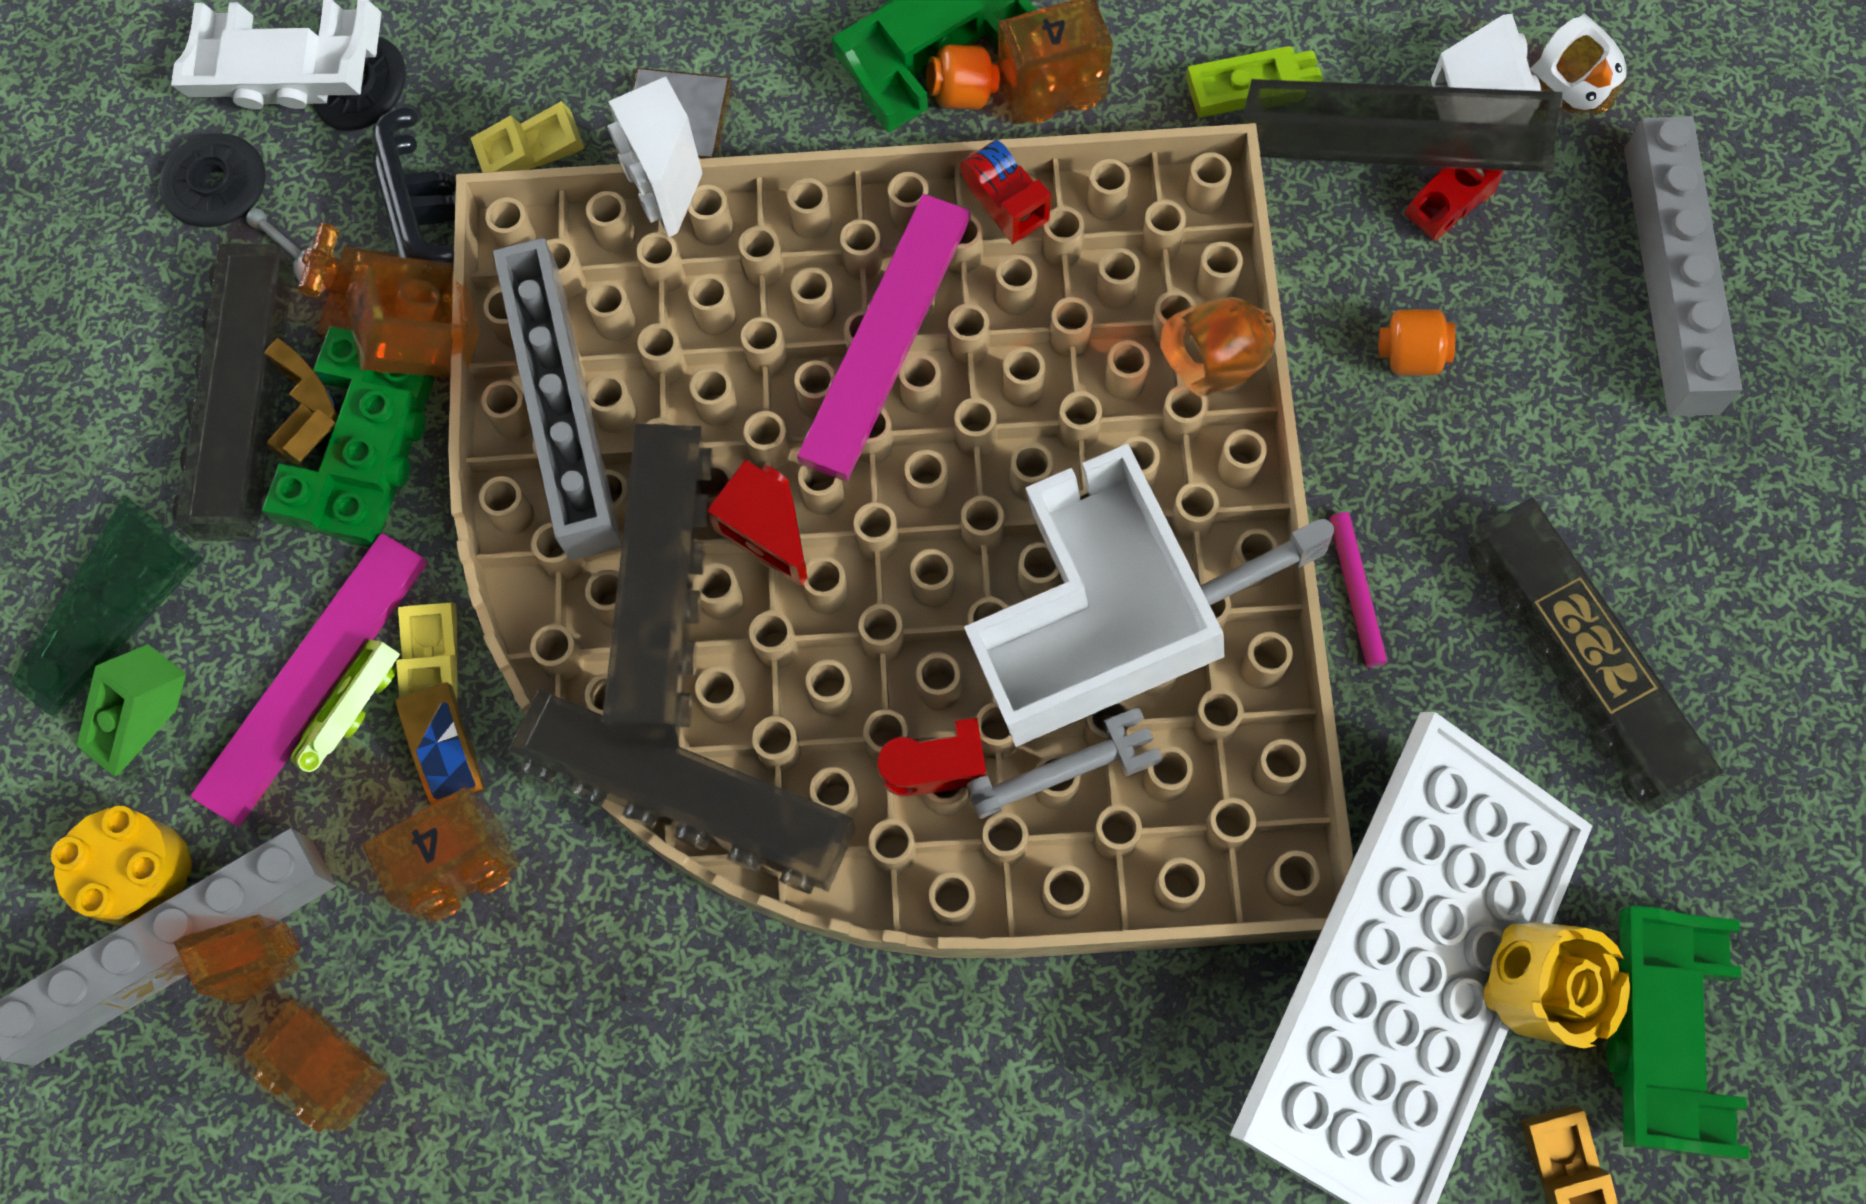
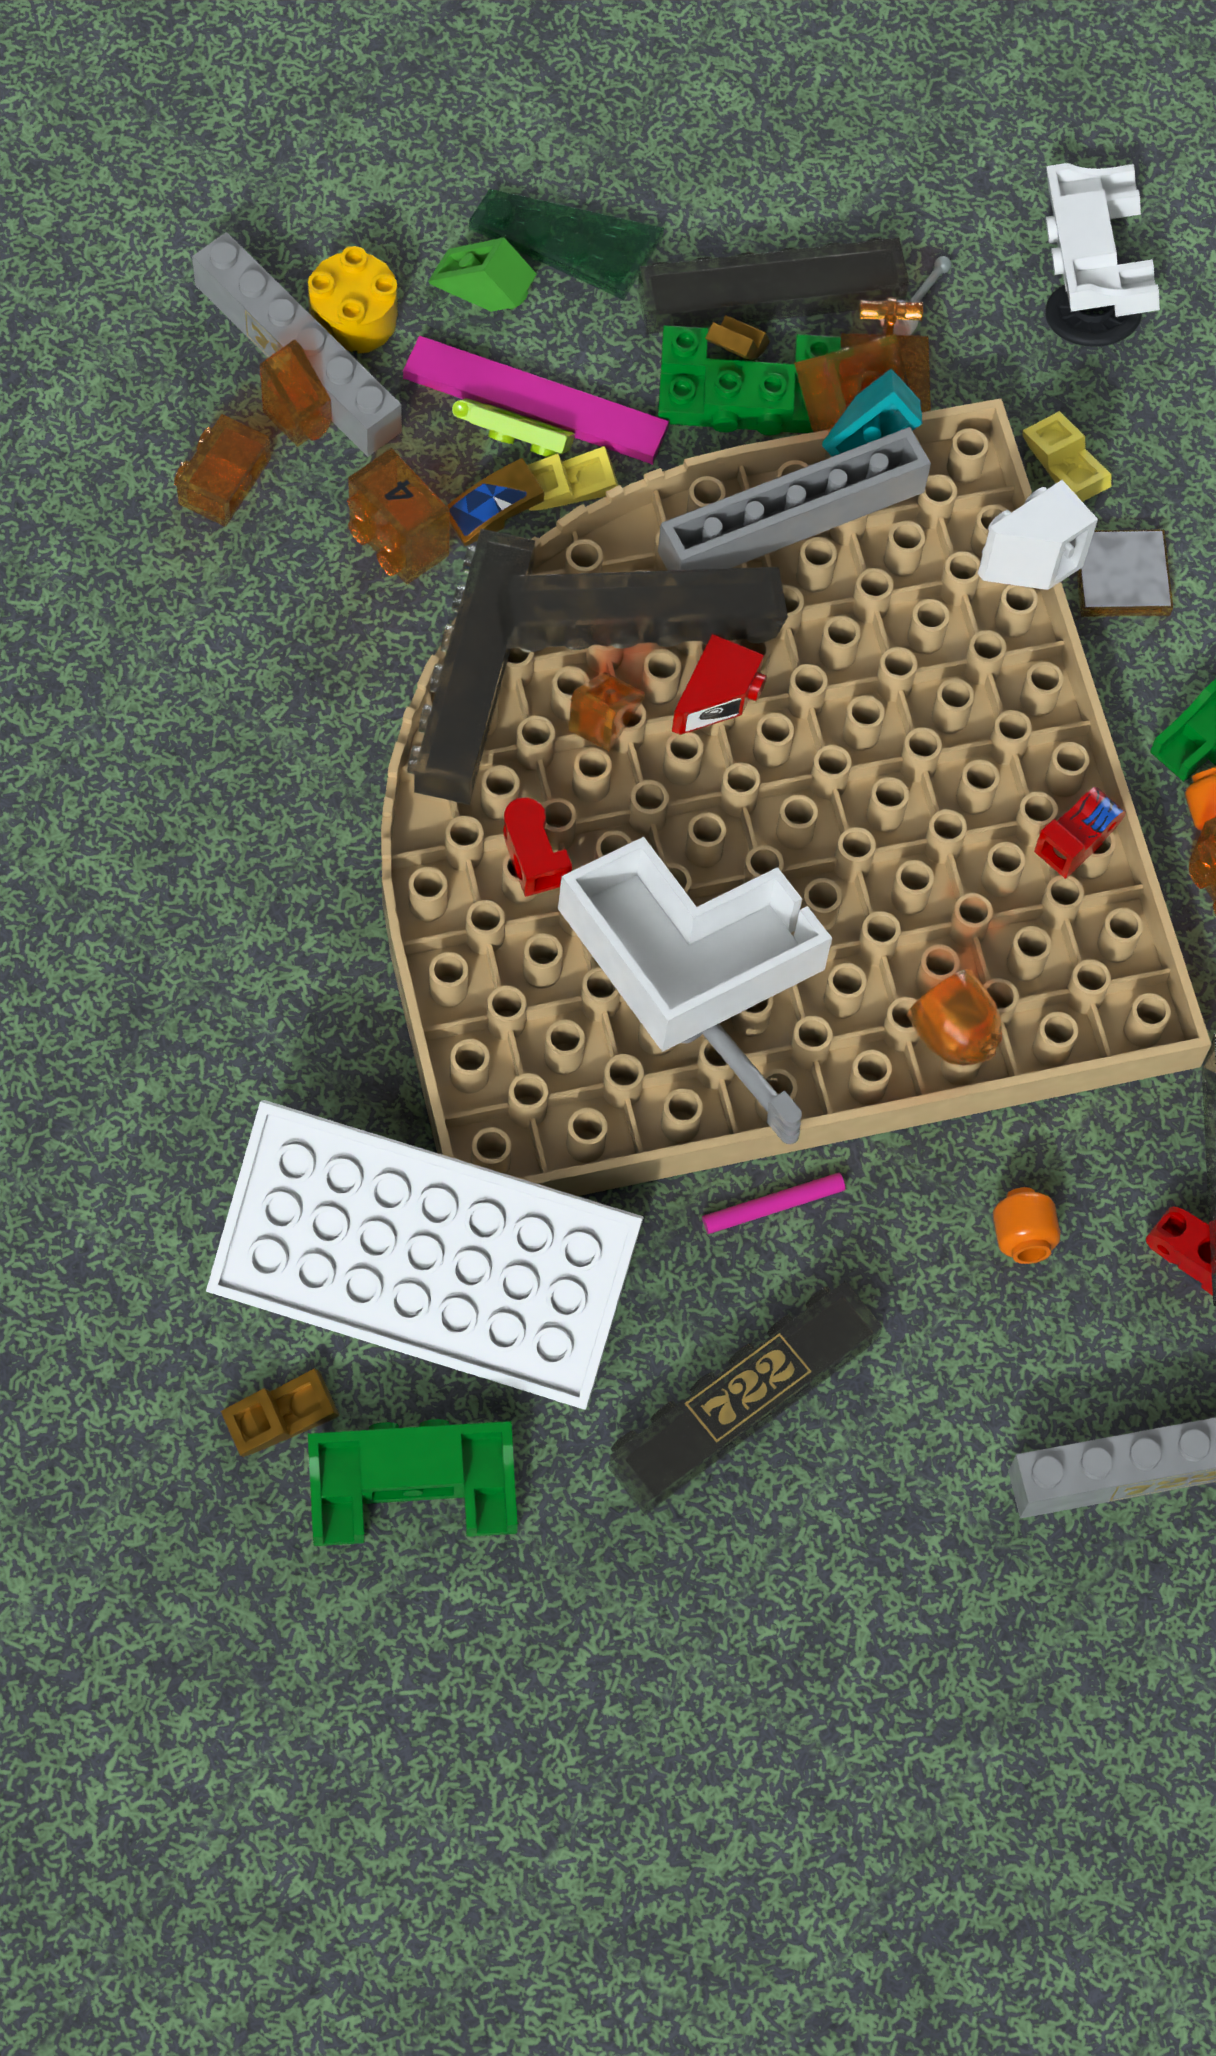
camera: 70 degrees right, 5 degrees down
(220, 205) = (966, 245): black wheel -> none
(309, 388) = (780, 341): pearl gold slope -> none
(411, 197) = (1034, 343): black piece -> none
(465, 293) = (875, 413): none -> teal slope
(767, 650) = (603, 709): none -> clear orange slope
(884, 338) = (917, 757): dark pink tile -> none
(1119, 746) = (572, 989): light grey hinge -> none
(1557, 983) = (433, 1367): yellow brick -> none

